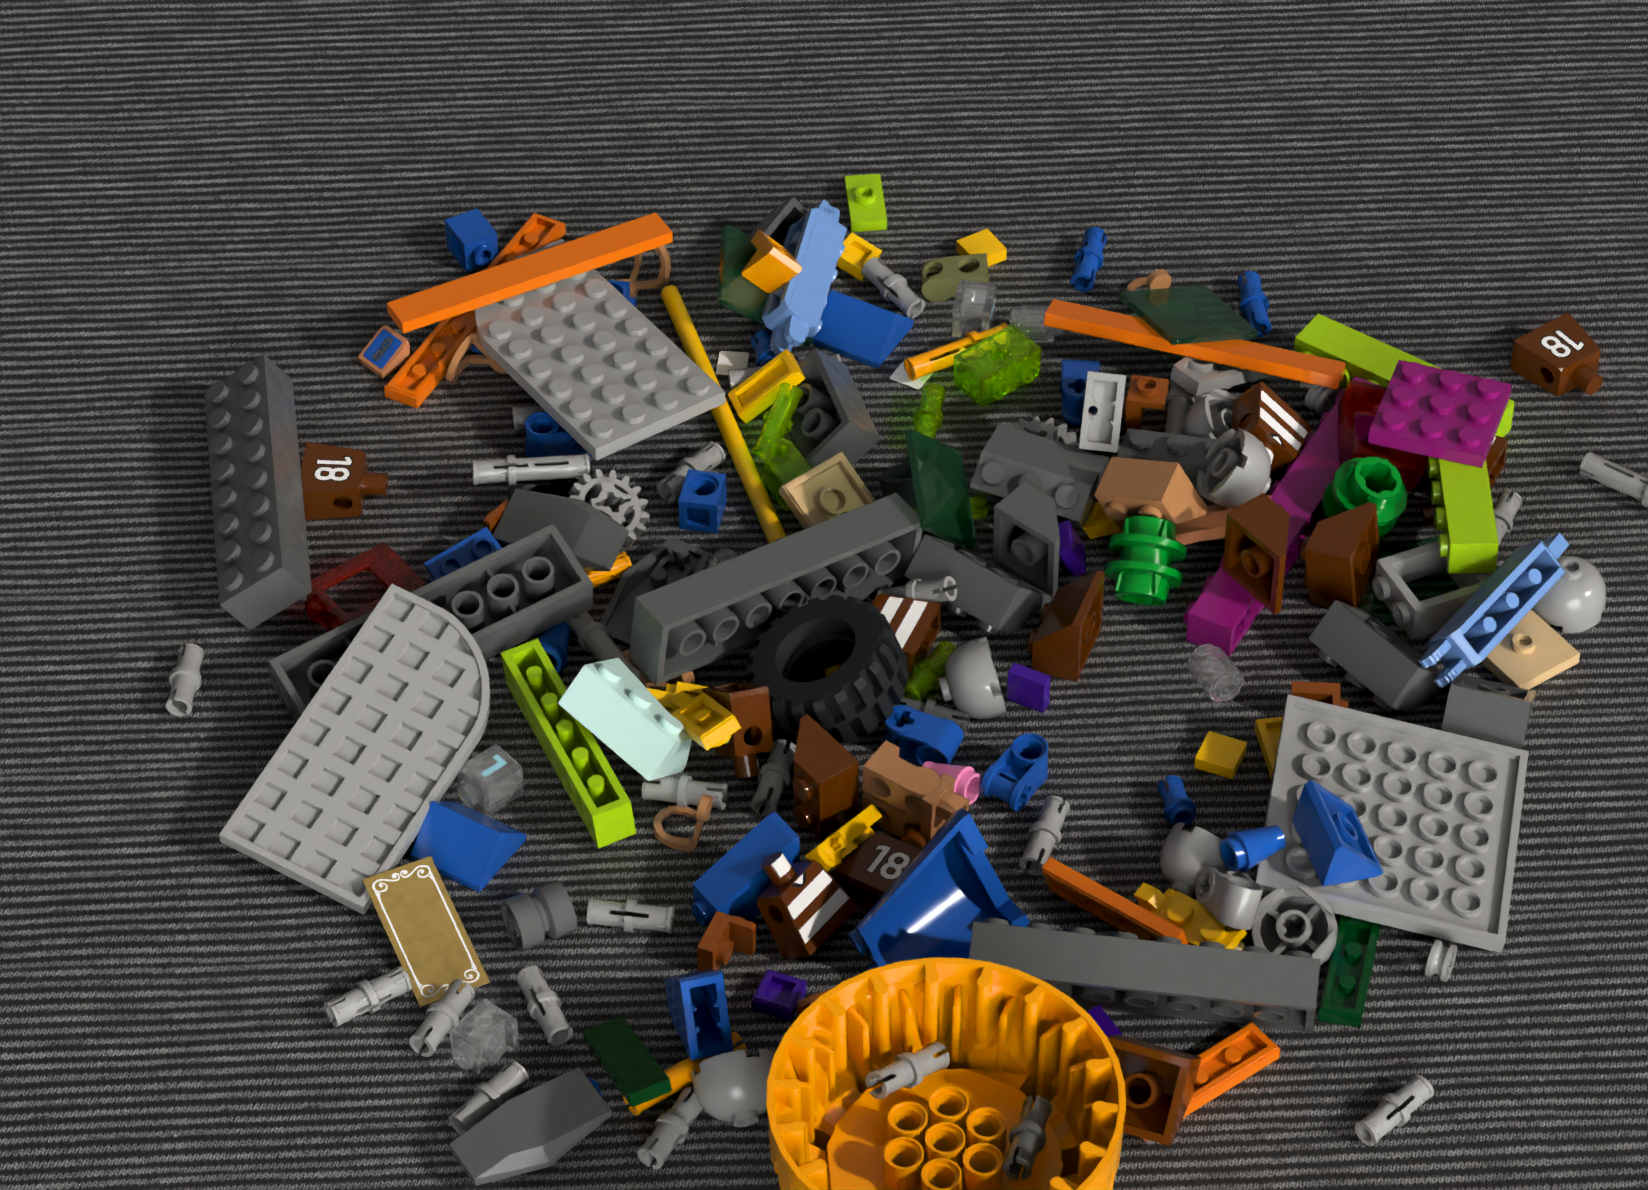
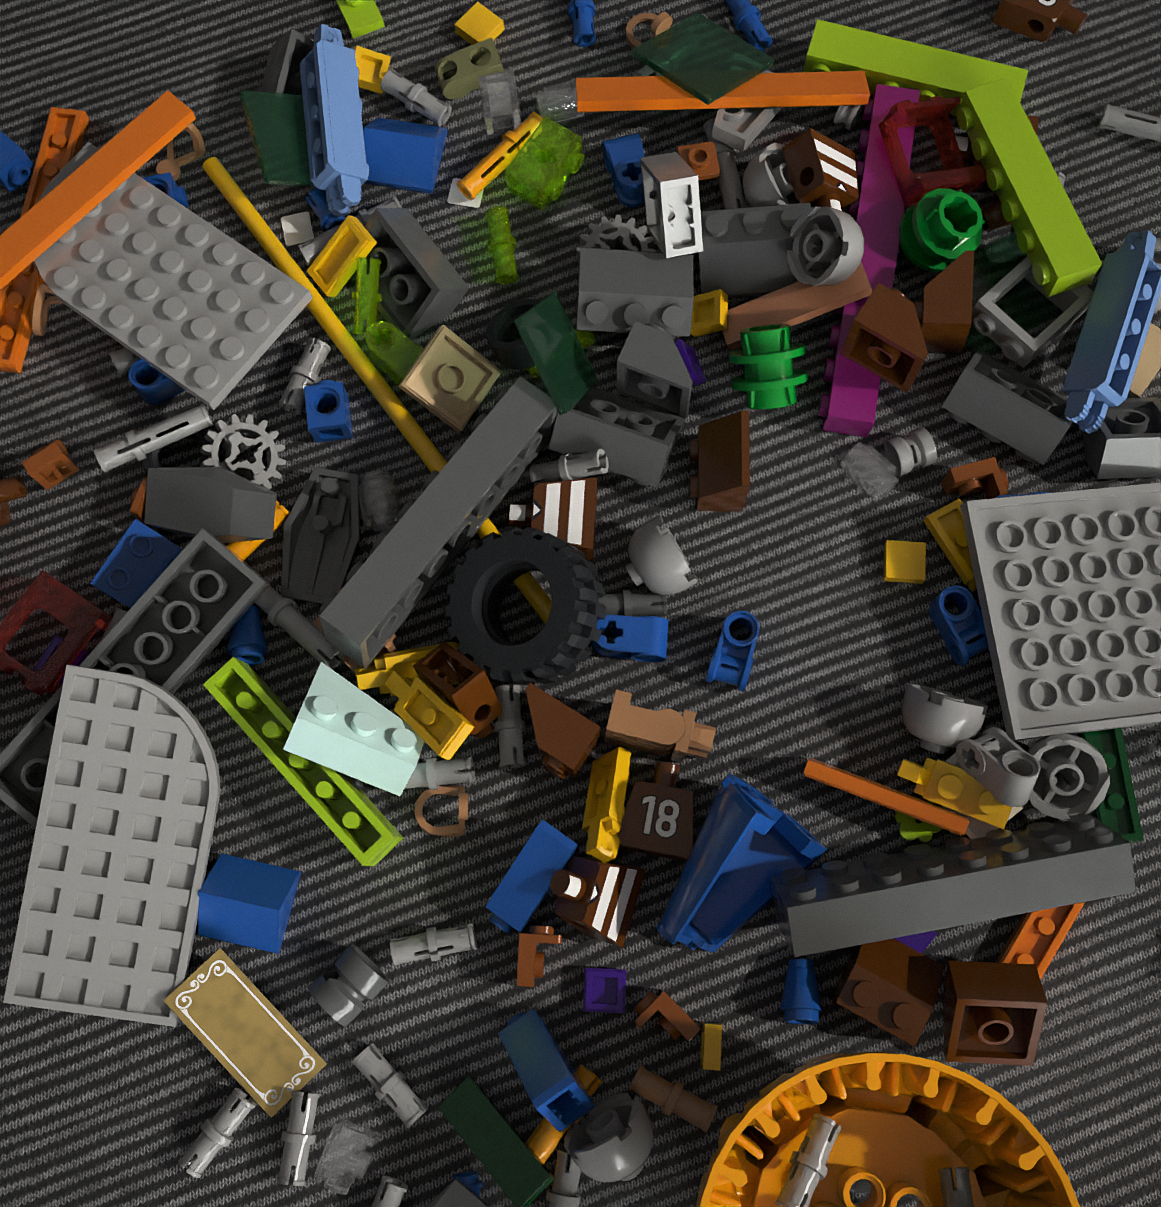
camera: 15 degrees left, 30 degrees up
(422, 472) = (50, 464): none -> dark orange bracket
(490, 781) = (243, 827): clear brick -> none
(770, 265) = (302, 119): light orange slope -> none
(928, 671) = (610, 552): clear neon green pin -> none
(966, 779) = (676, 679): bright pink cone -> none
(1028, 687) = (707, 543): dark purple tile -> none
(1044, 834) = (783, 715): light grey pin -> none
(1149, 490) = (752, 297): medium nougat slope -> none
(1177, 804) = (887, 634): blue pin -> none
(1249, 798) = (959, 628): none -> blue piece
(1249, 847) = (1003, 709): blue cone -> none
(1271, 667) = (911, 451): none -> light grey wheel
(1333, 837) = (1072, 667): blue slope -> none
(1440, 413) = (992, 121): magenta plate -> none

